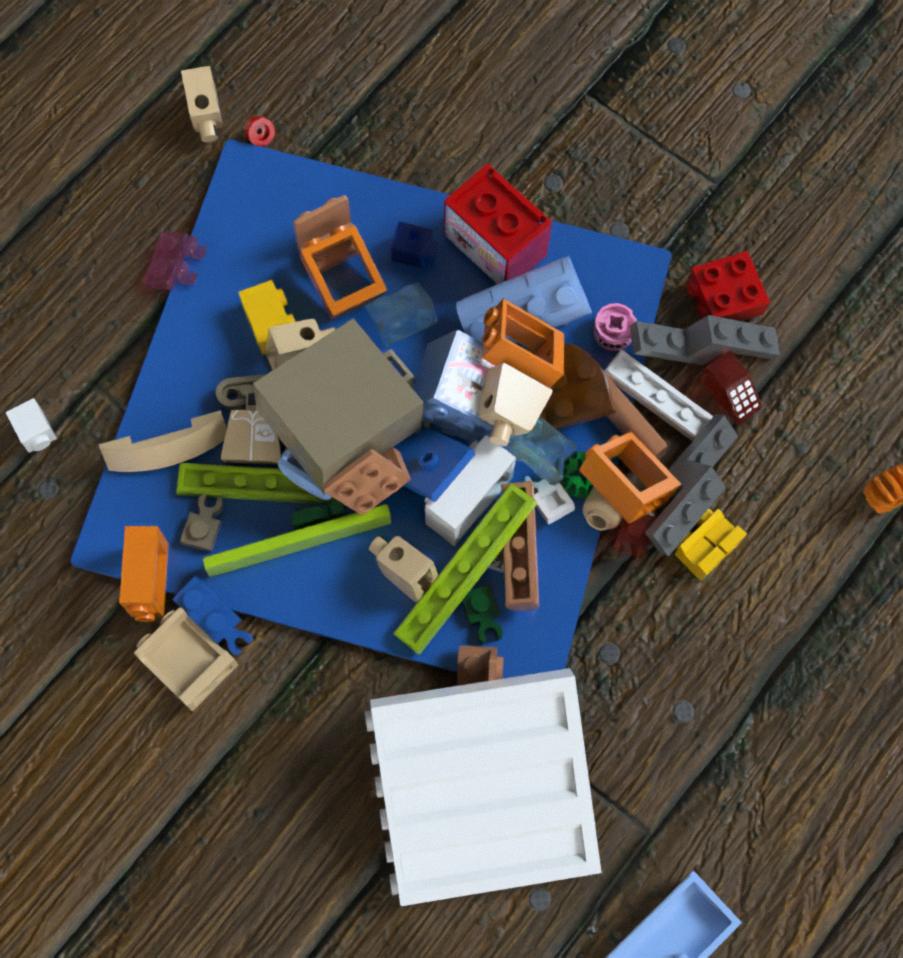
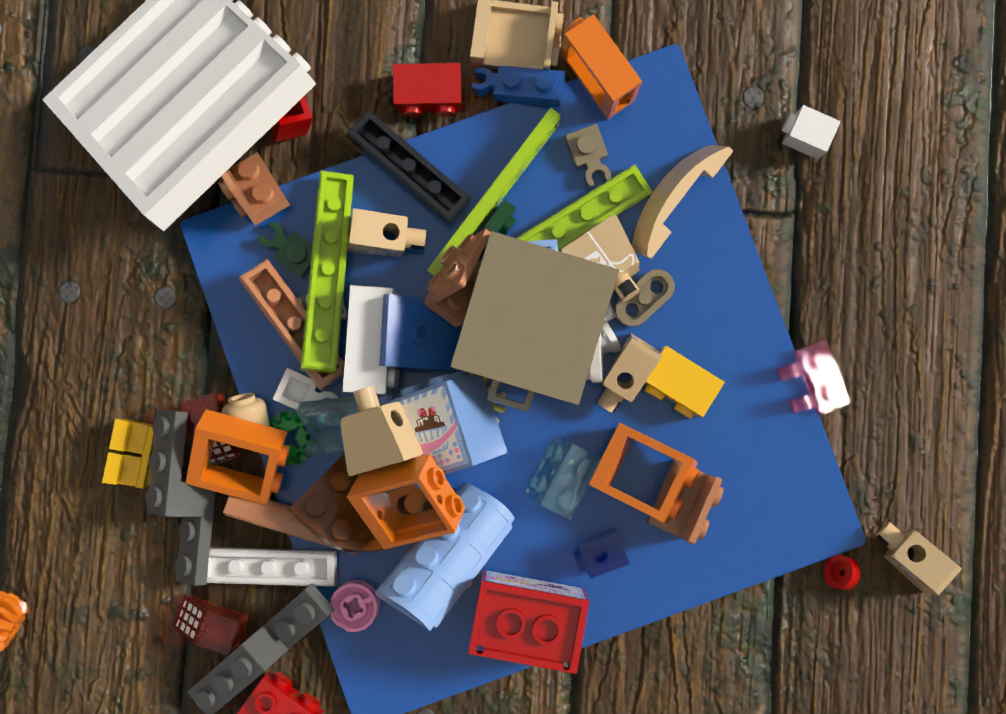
camera: 150 degrees right, 15 degrees up
(286, 663) = (427, 89): none -> red piece
(347, 608) = (409, 167): none -> black brick

